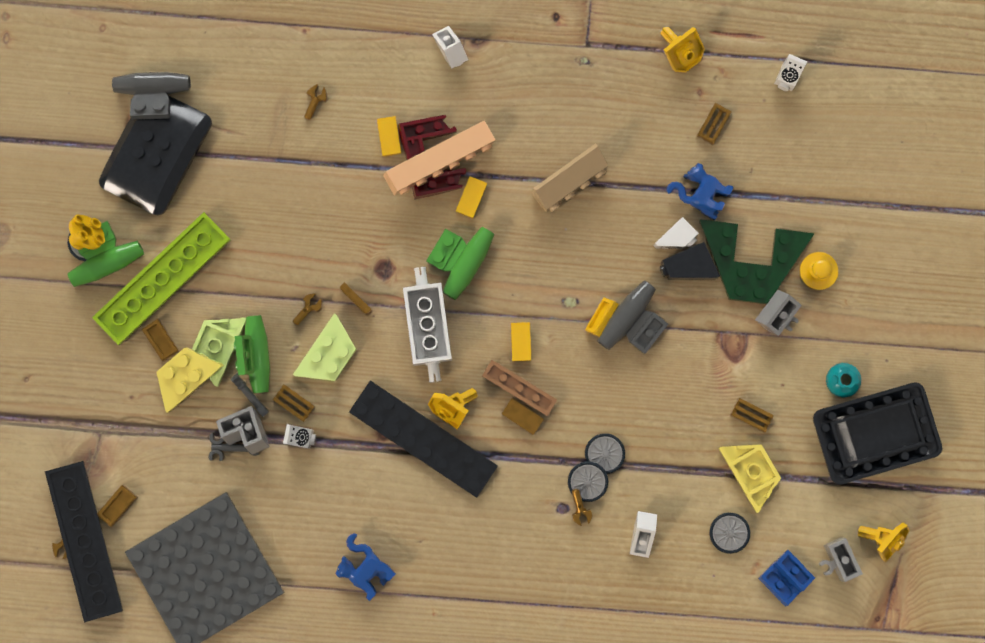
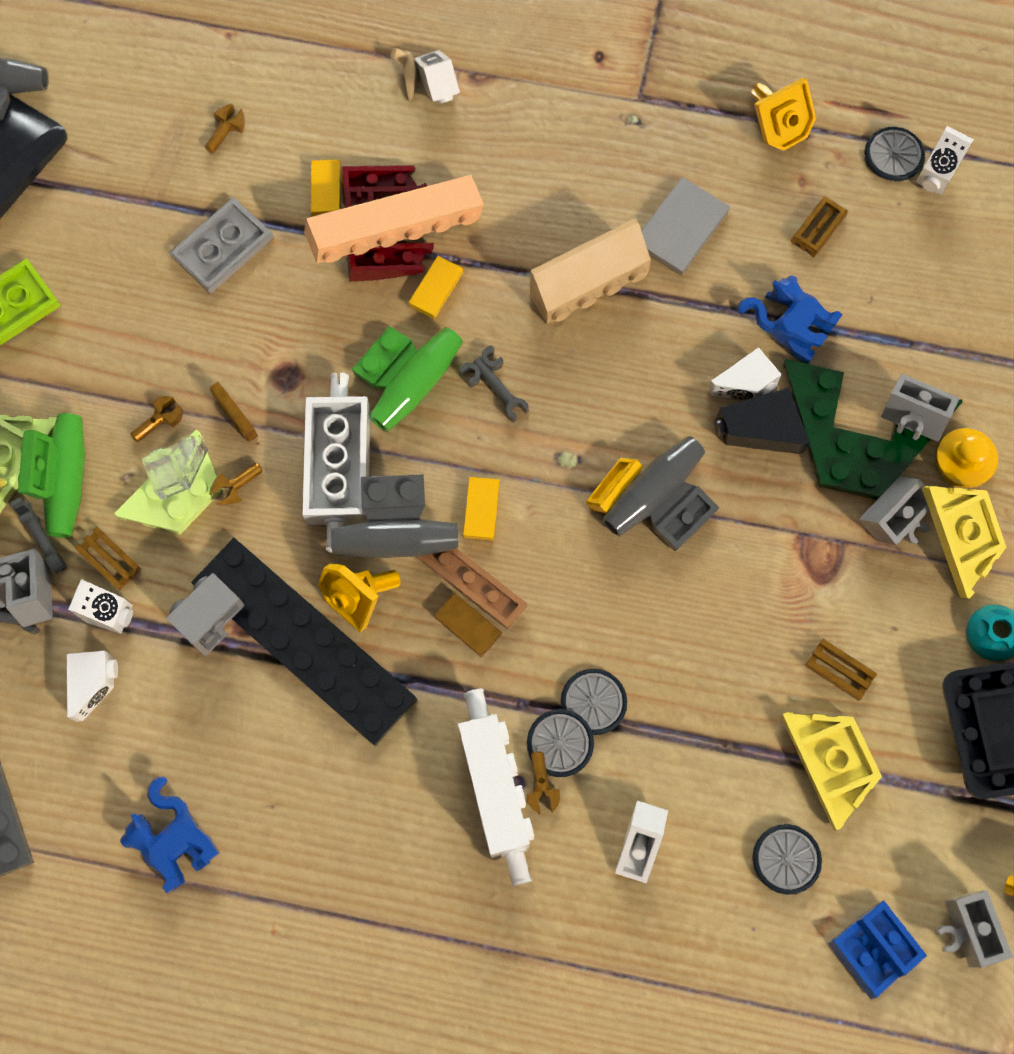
camera: 10 degrees right, 10 degrees down
(298, 481) = (88, 681): none -> white slope
(327, 185) = (221, 245): none -> light grey tile
(327, 343) = (175, 467): none -> clear slope
(364, 346) = (234, 484): none -> pearl gold bar
(364, 432) = (205, 613): none -> light grey brick
(431, 44) = (409, 69): none -> tan bar
(470, 361) = (393, 522): none -> dark grey plate
(509, 248) = (485, 368): none -> dark grey bar
(552, 513) = (494, 786): none -> white brick
(625, 134) = (683, 225): none -> light grey tile
(758, 65) = (894, 153): none -> light grey wheel
(785, 247) = (919, 408): none -> light grey brick
(821, 321) = (966, 533): none -> light yellow wing

